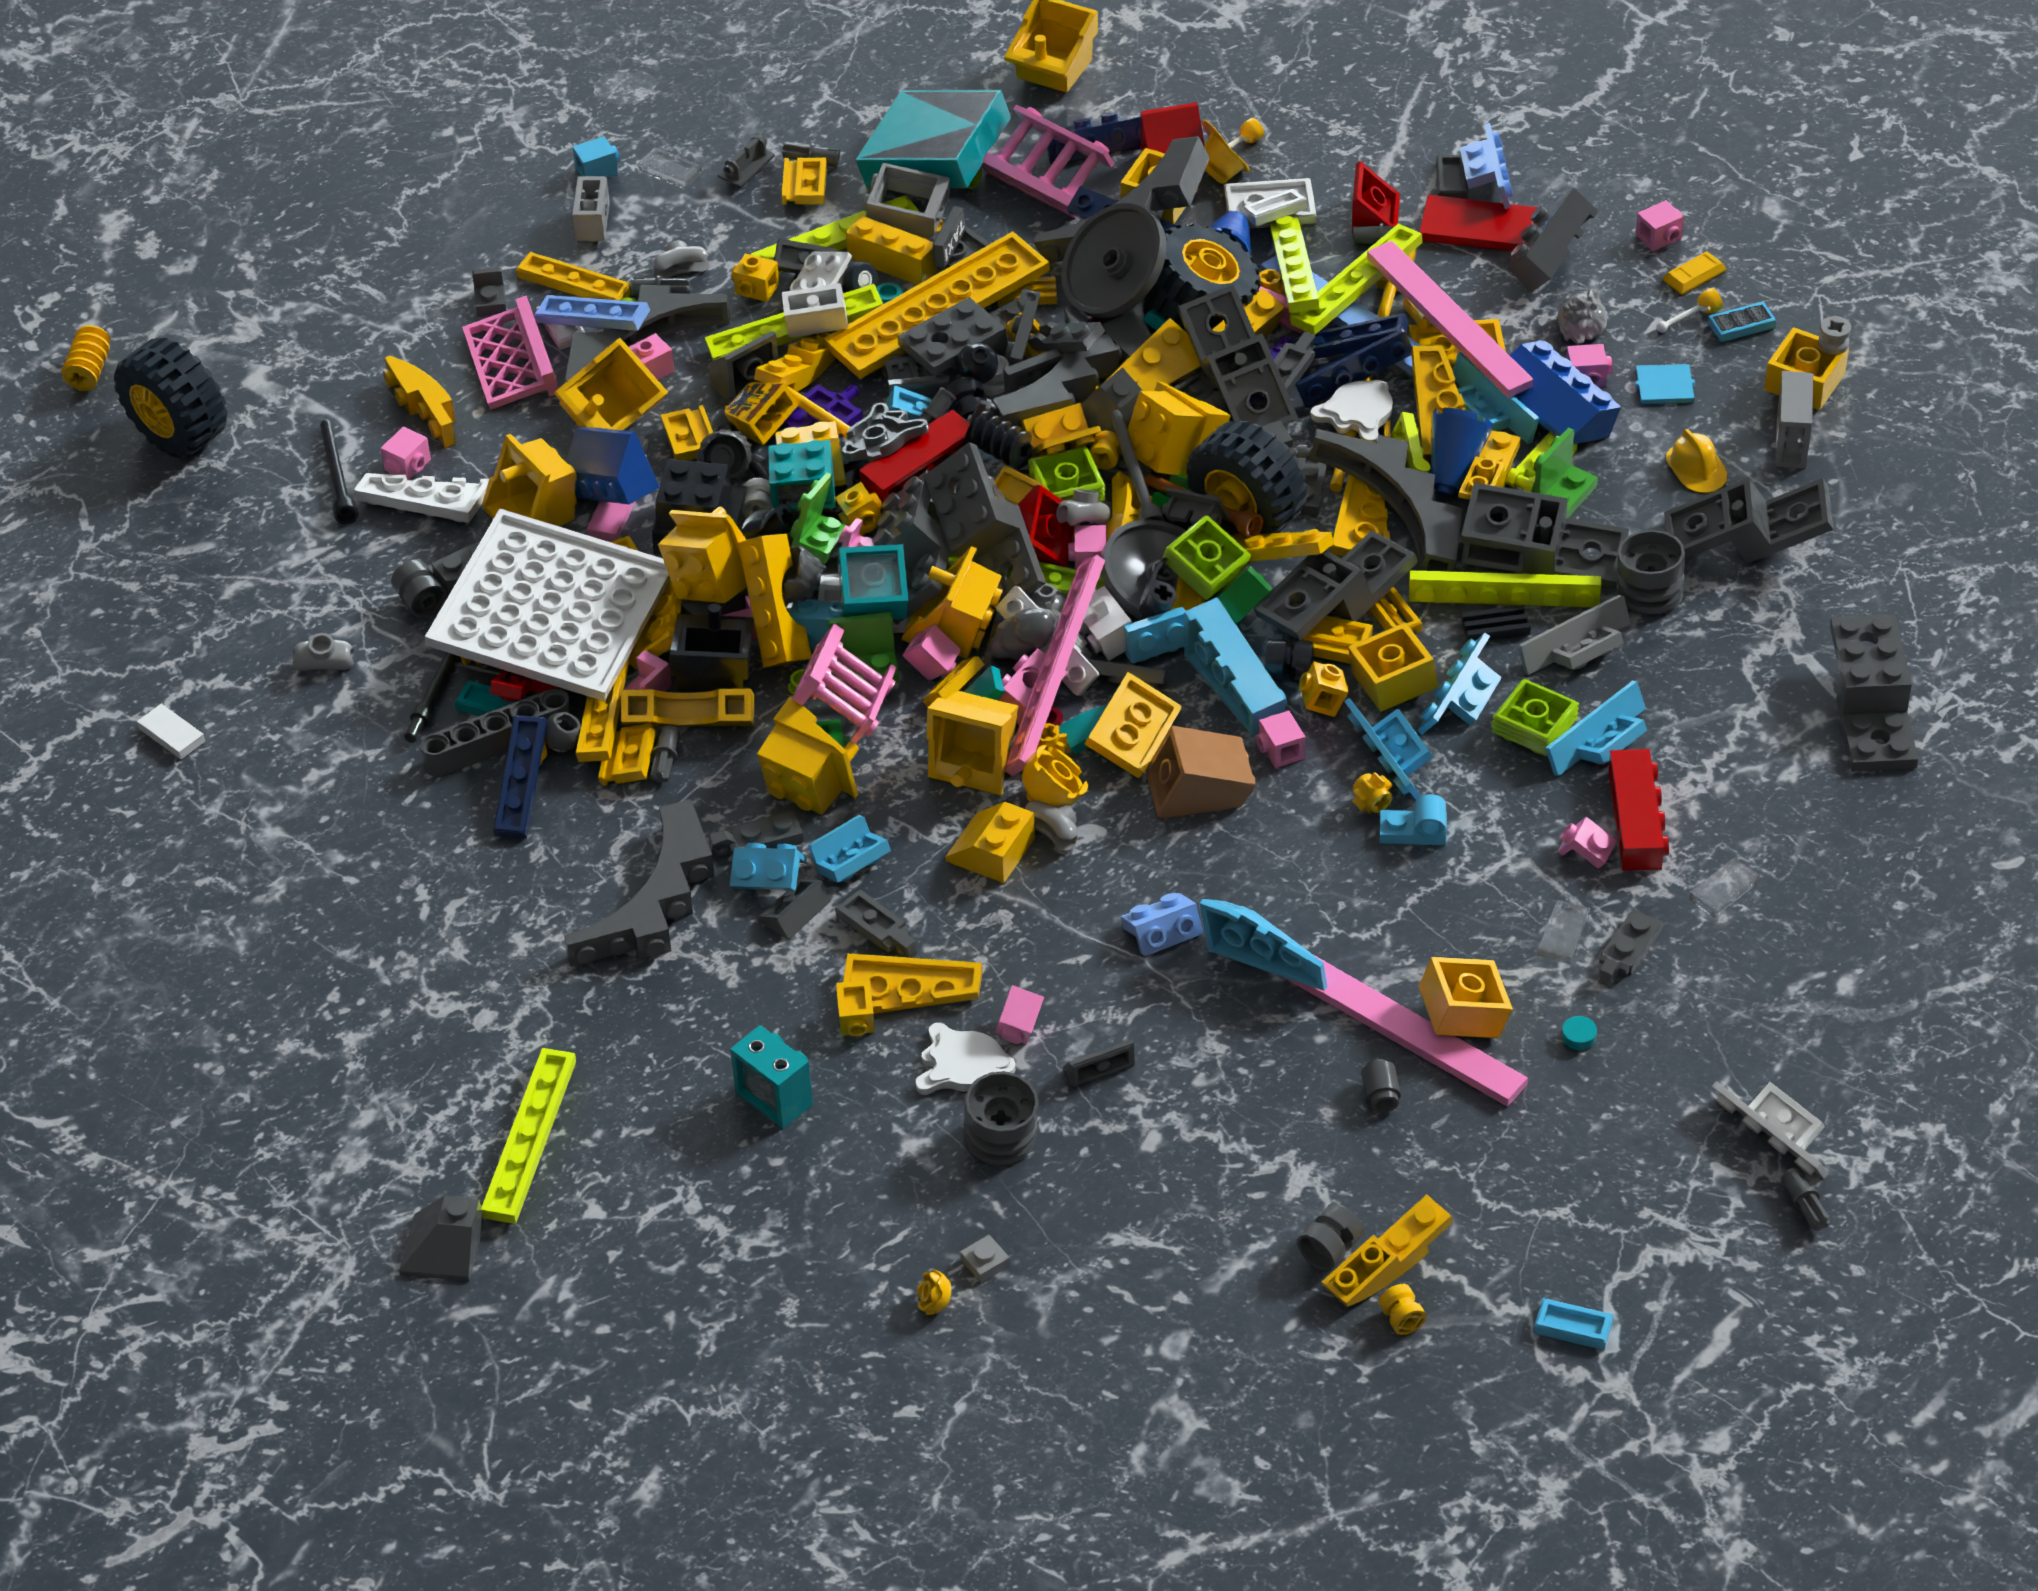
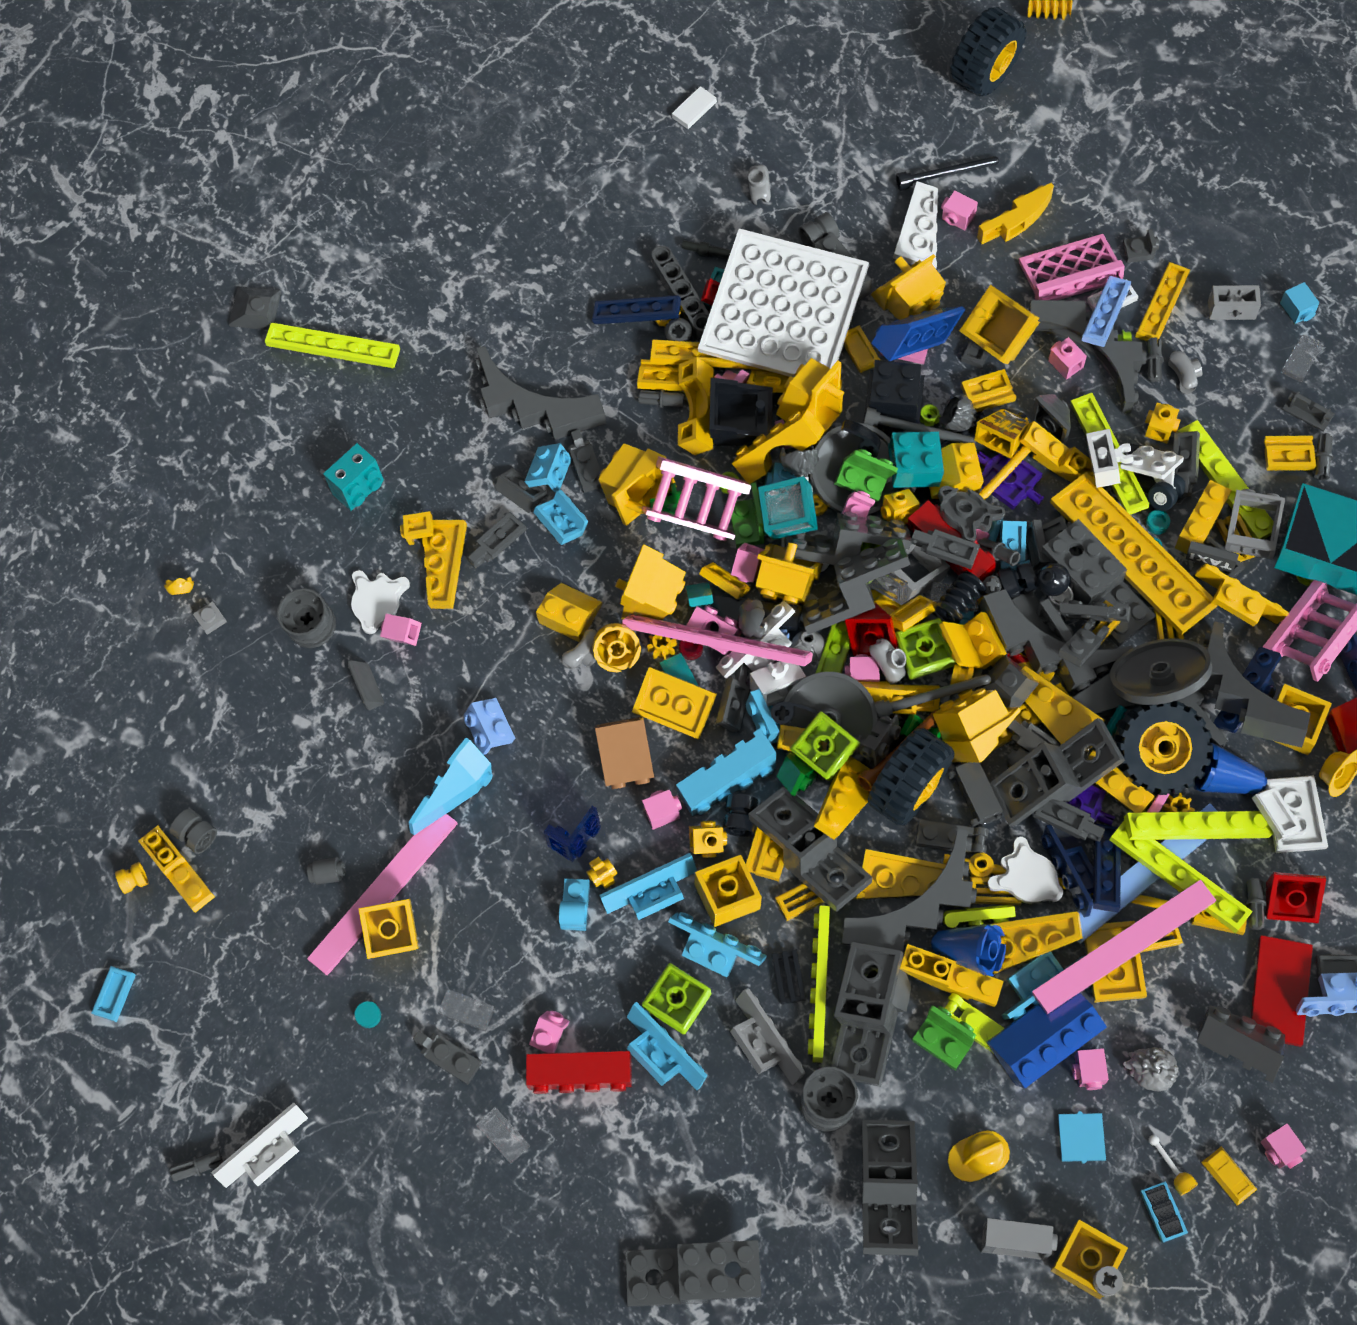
camera: 95 degrees right, 20 degrees up
(750, 482) = (874, 418): none -> dark grey piece
(934, 443) = (946, 547): none -> dark grey hinge
(1004, 217) = (1239, 599): none -> yellow bracket
(1327, 807) = (575, 845): none -> clear blue bracket

